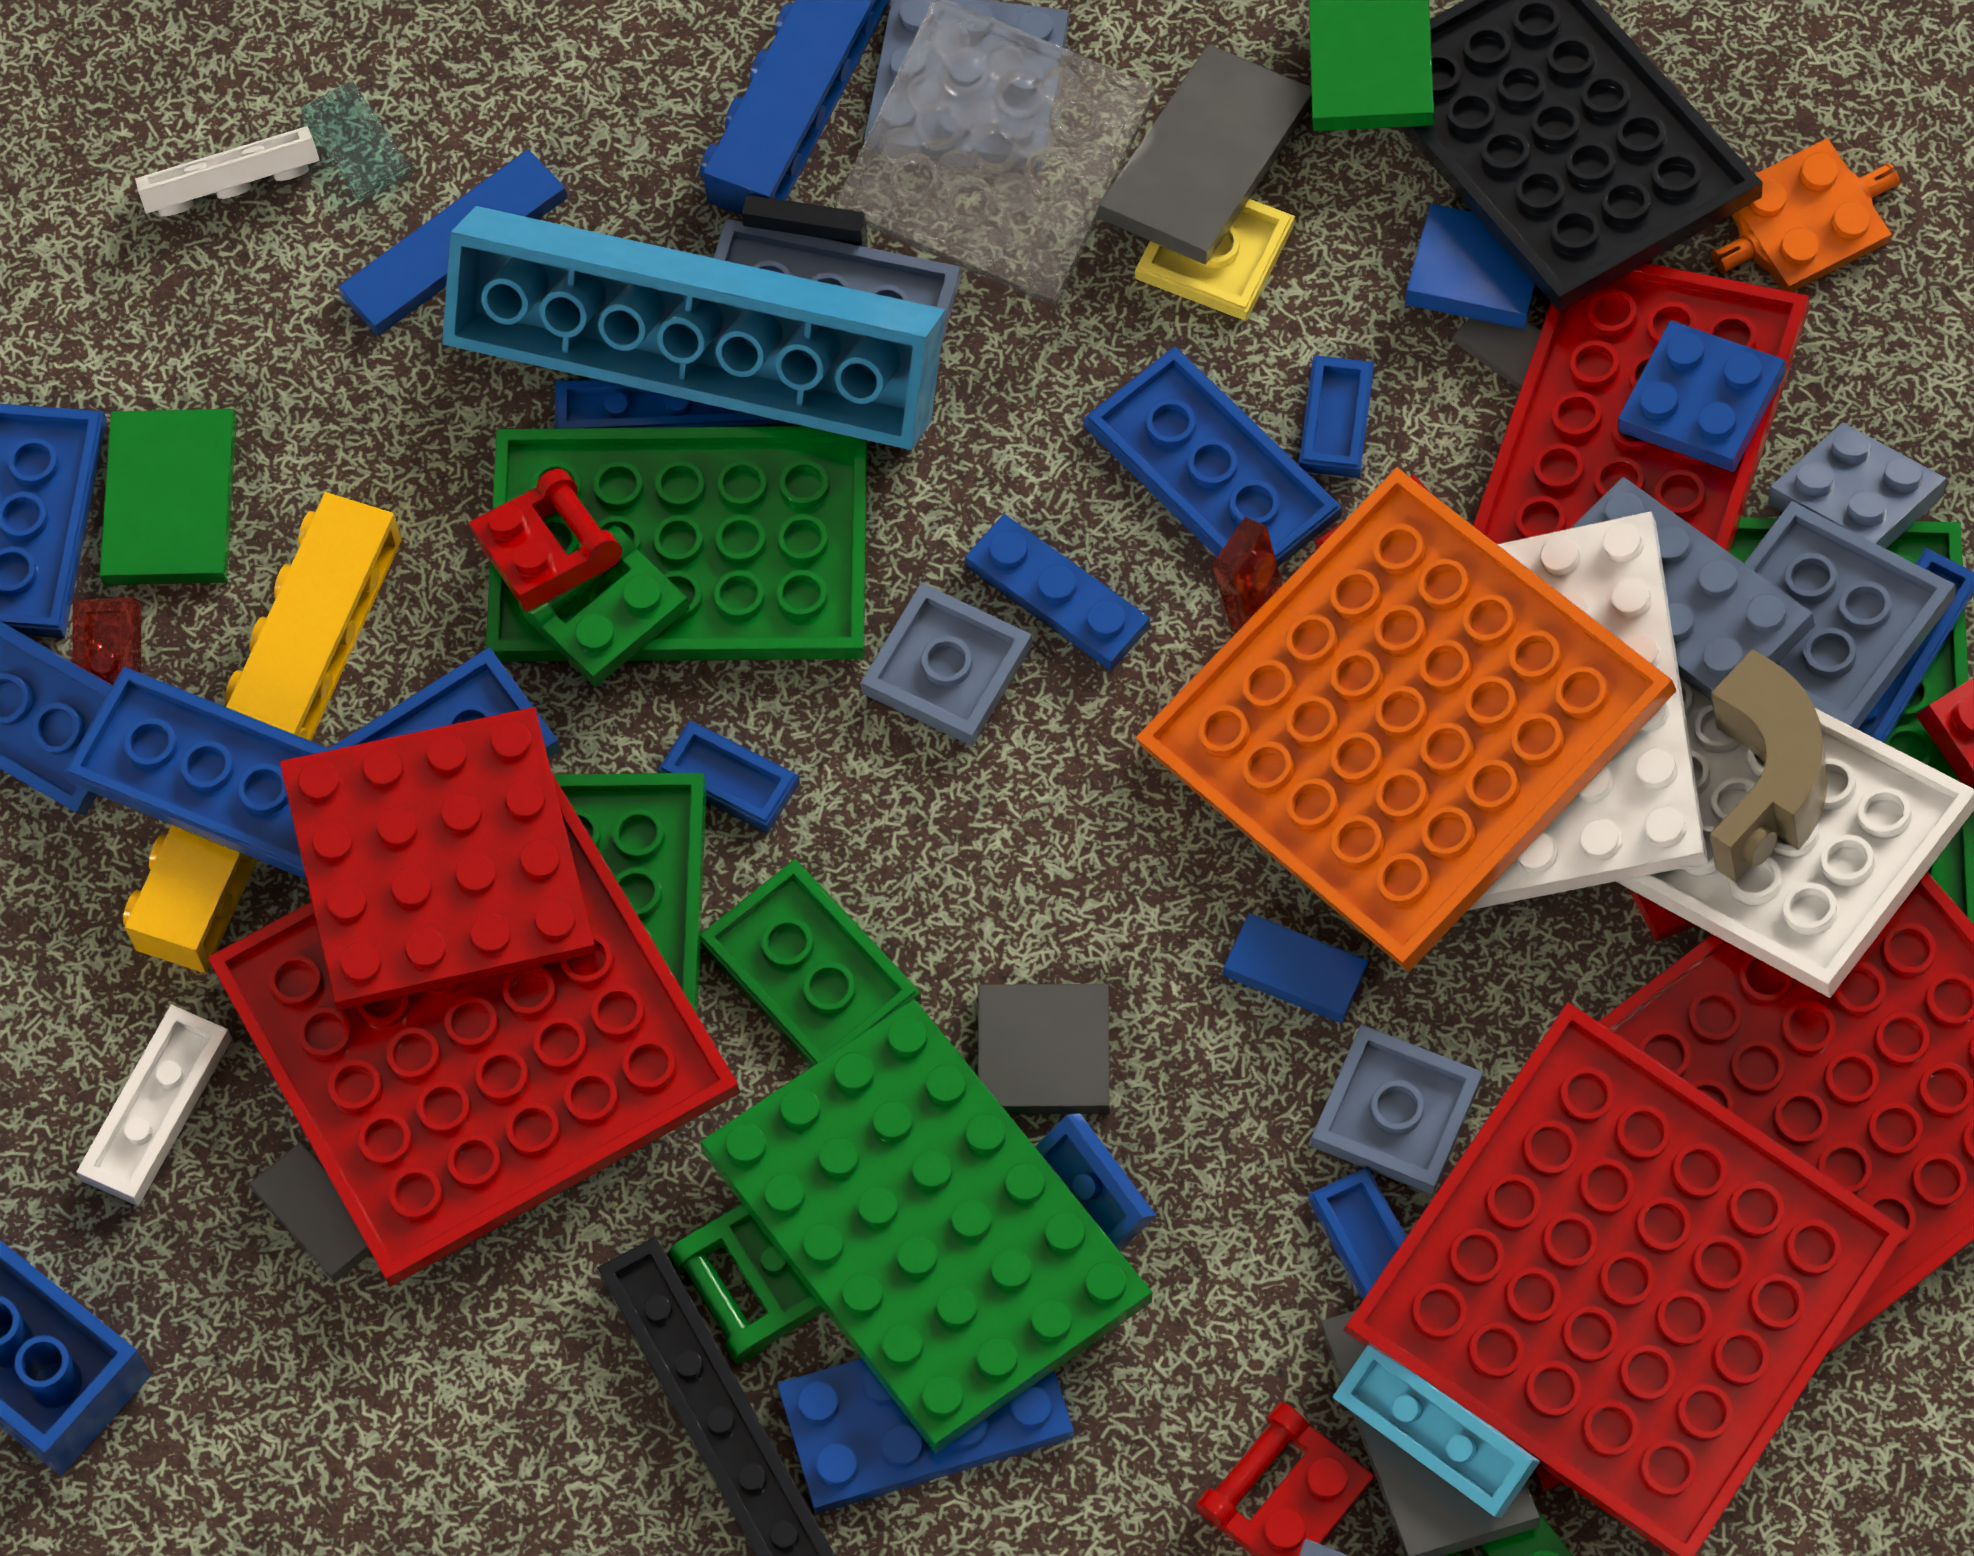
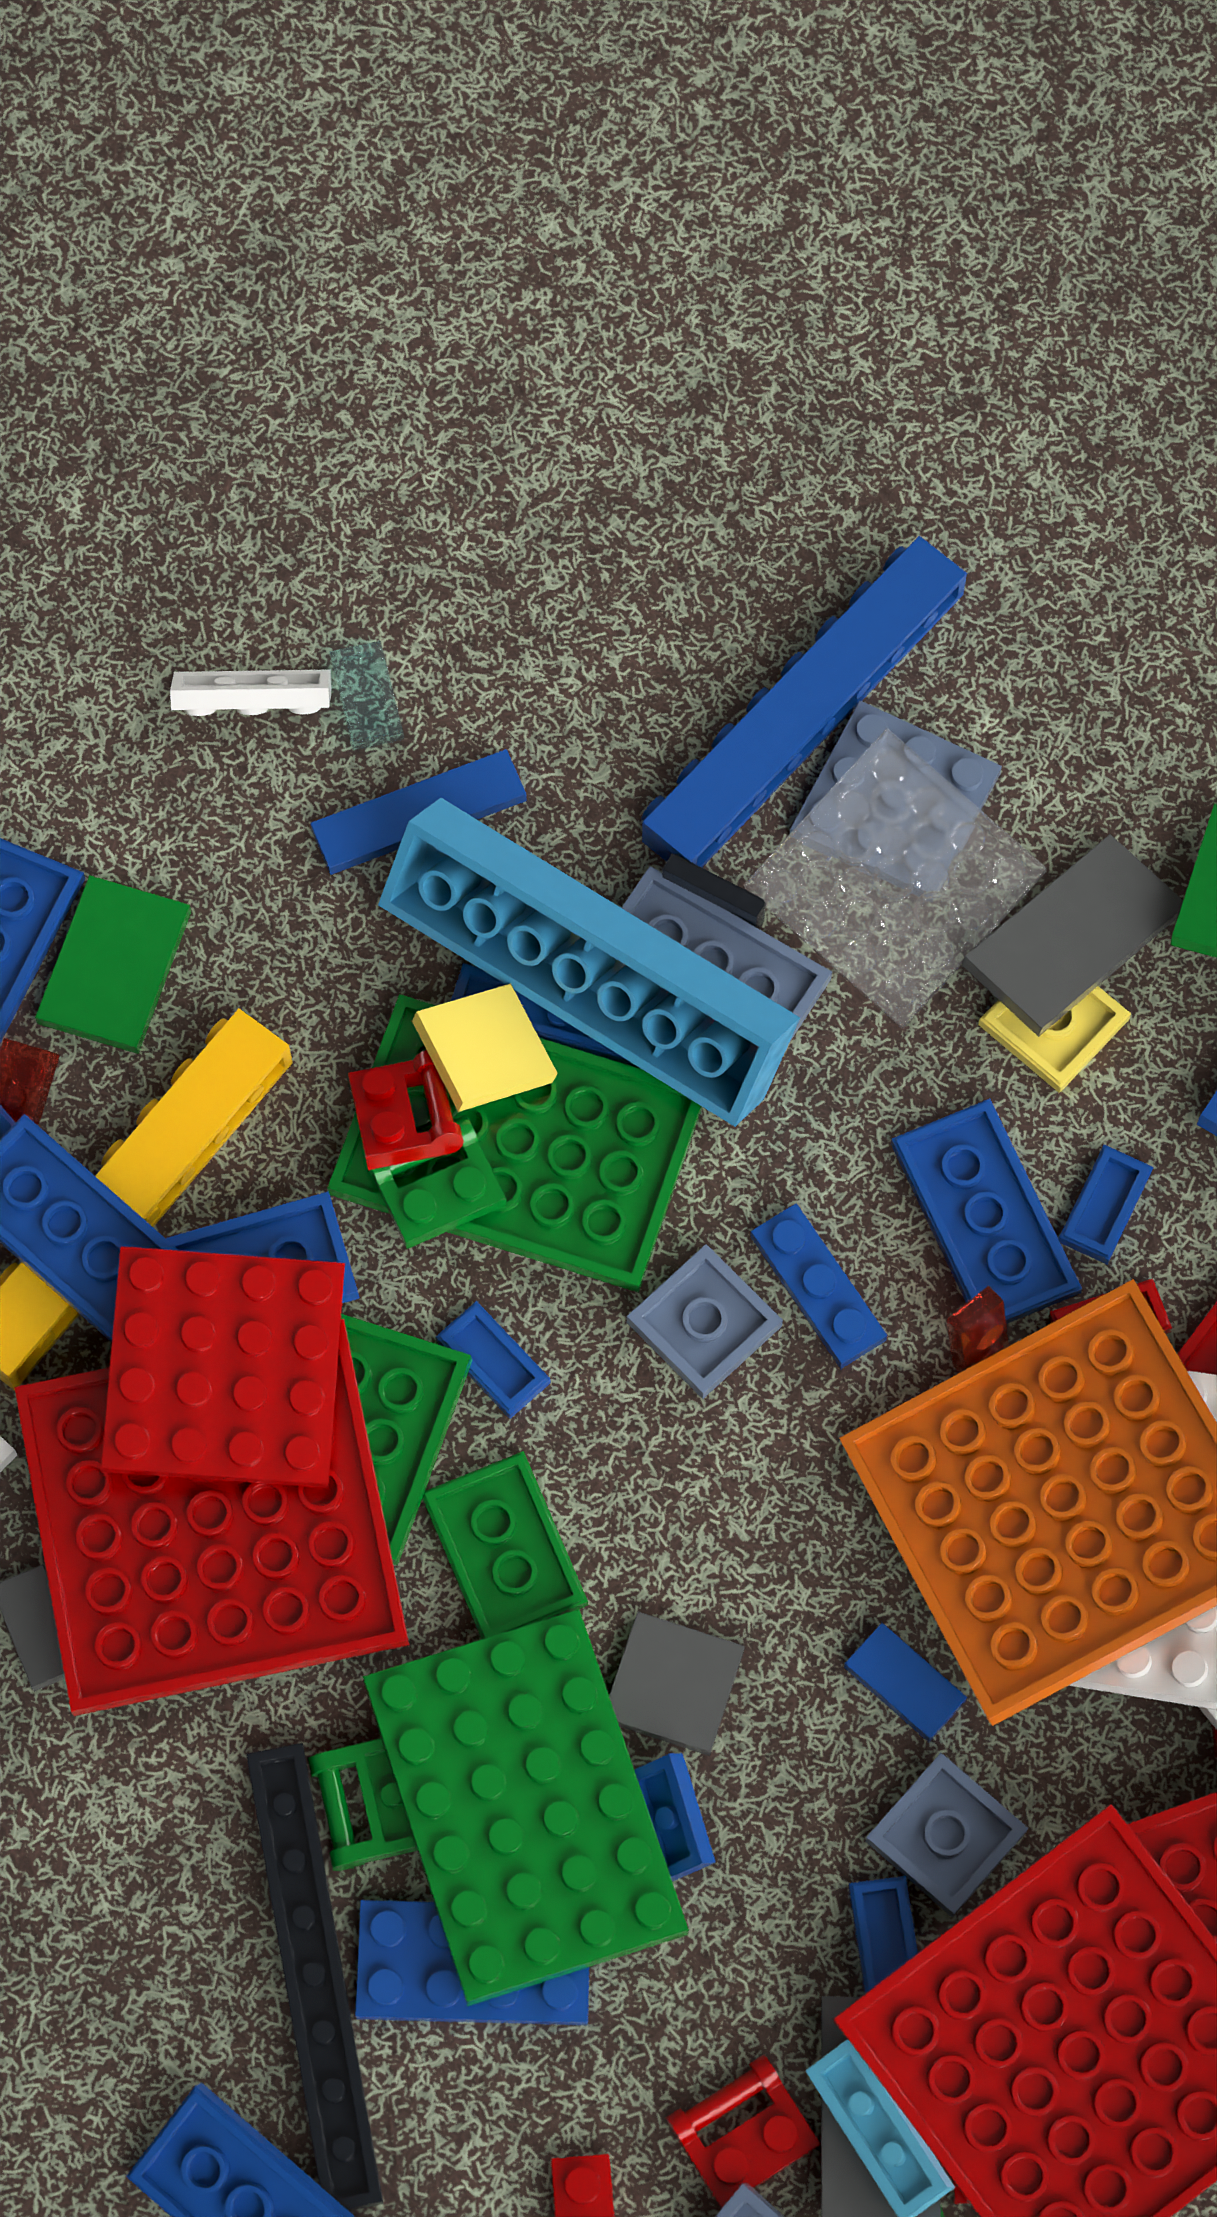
camera: 15 degrees right, 5 degrees up
(610, 449) = (484, 1047): none -> light yellow tile

